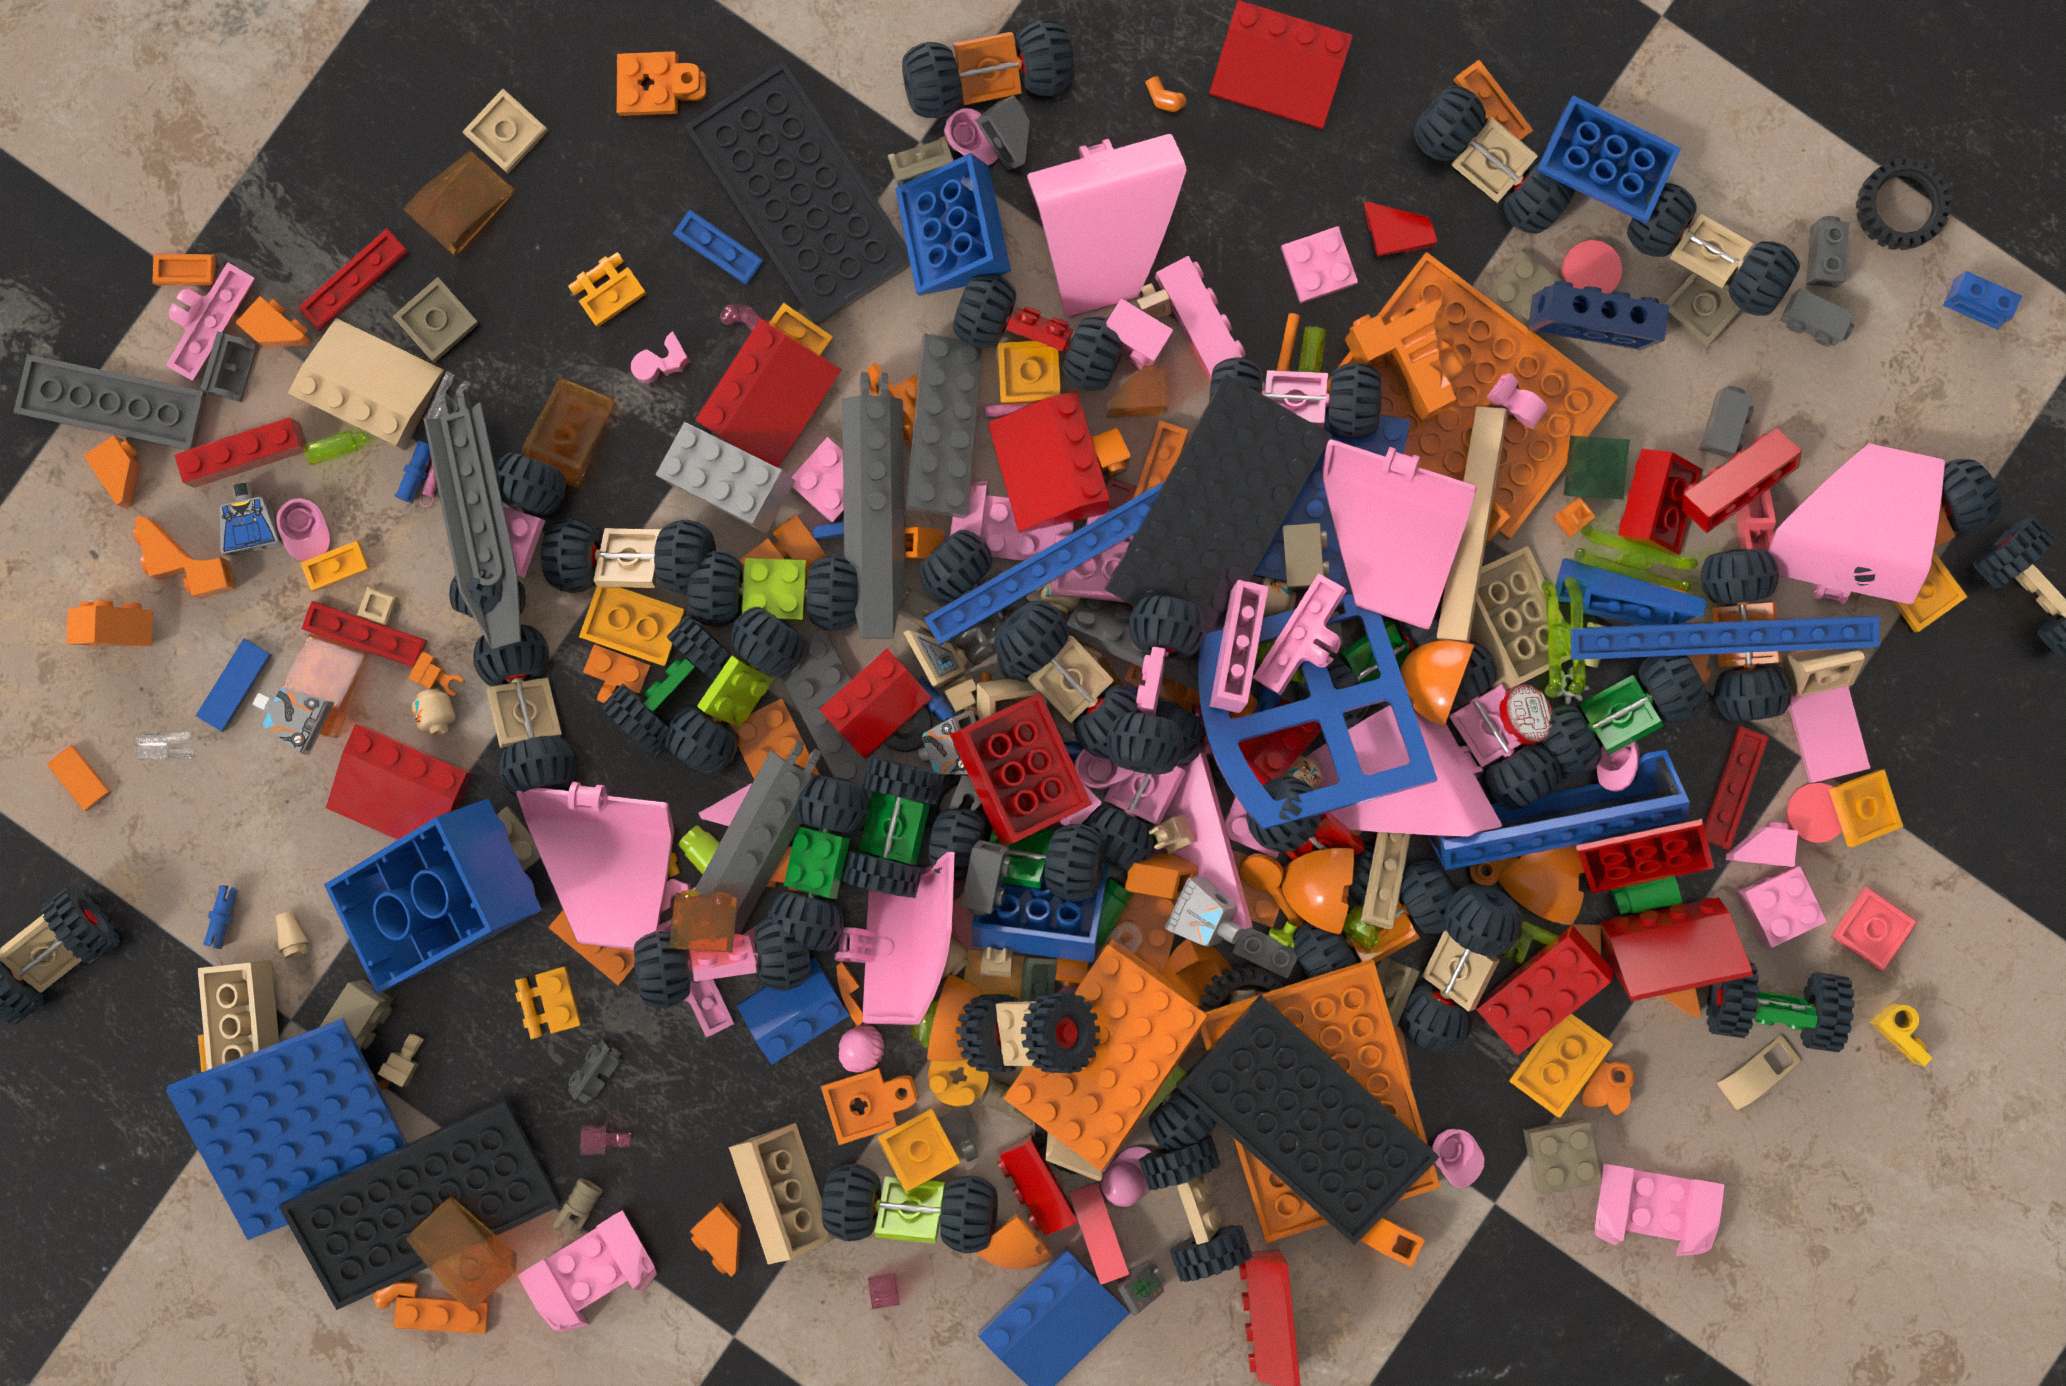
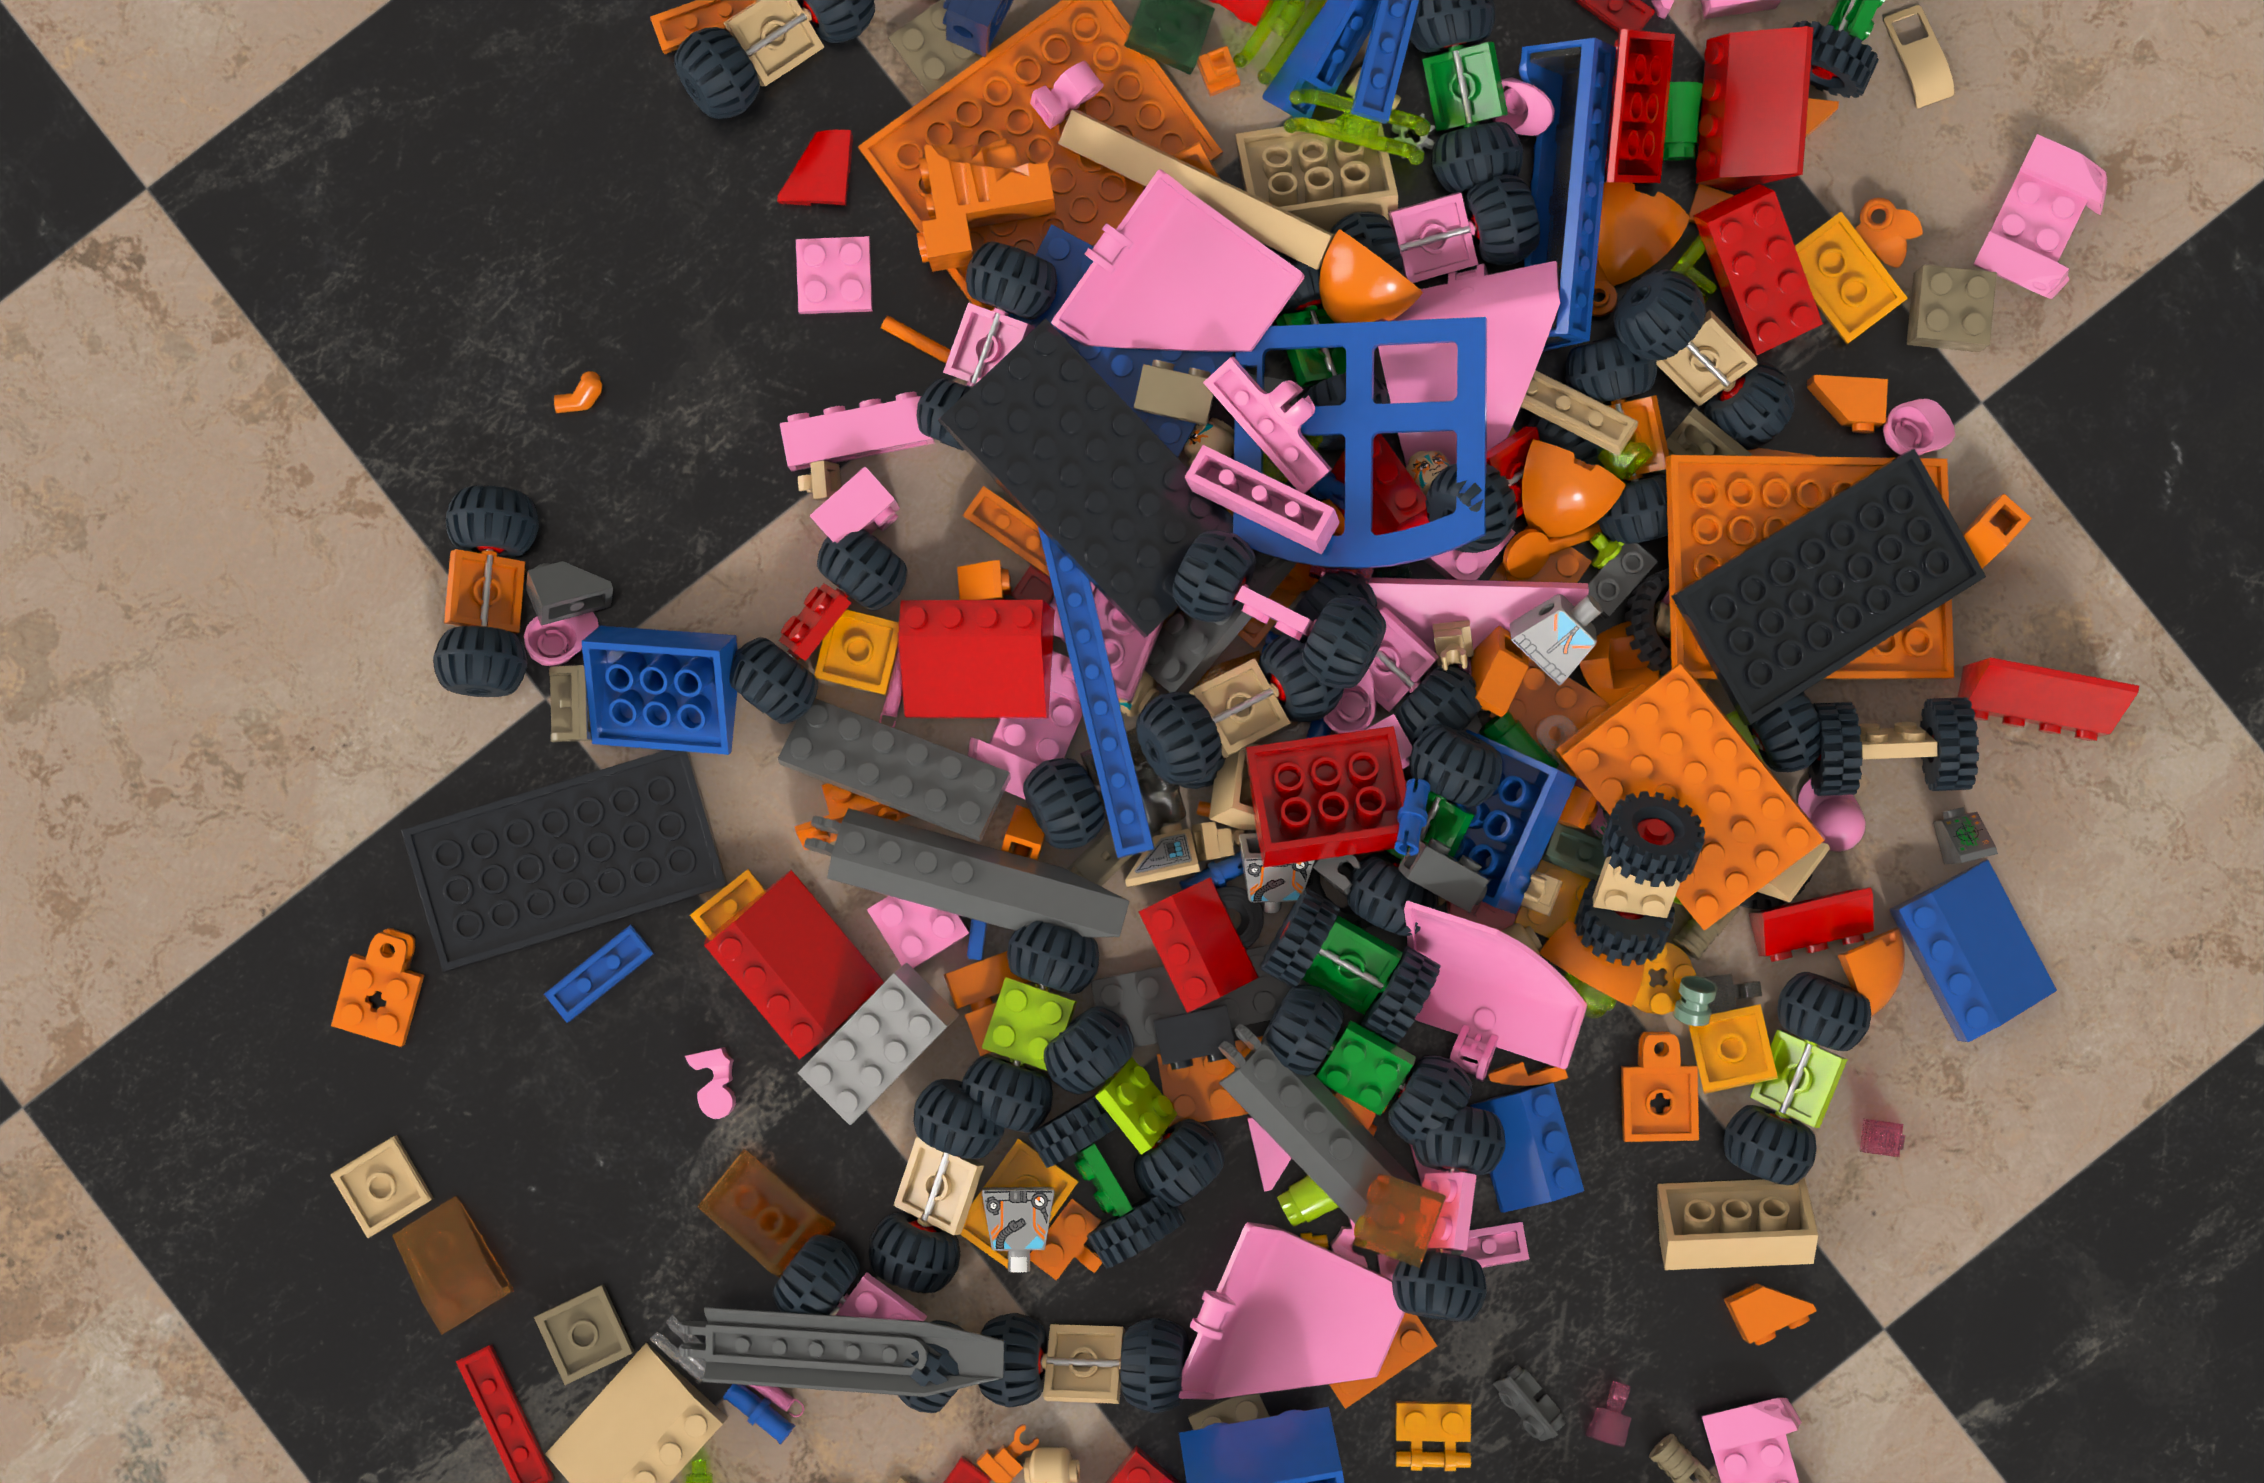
camera: 70 degrees left, 0 degrees up
(610, 297) = (619, 1115): light orange plate -> none
(619, 627) = (1018, 1221): none -> torso
(739, 313) = (686, 970): clear pink arm -> none
(803, 721) = (1193, 1036): none -> black brick
(861, 1048) = (1593, 1081): bright pink hair -> none
(947, 1109) = (1695, 1001): none -> sand green wheel
(1022, 837) = (1412, 817): none -> blue pin
(1099, 1233) = (1887, 867): coral slope -> none
(1107, 218) = (705, 503): bright pink panel -> none
(1141, 395) = (928, 524): clear orange slope -> none
(1280, 64) = (584, 248): red slope -> none
(1312, 350) = (933, 313): clear neon green cylinder -> none
(1464, 1098) = (1852, 400): none -> orange slope
(1526, 714) = (1434, 194): tile -> none

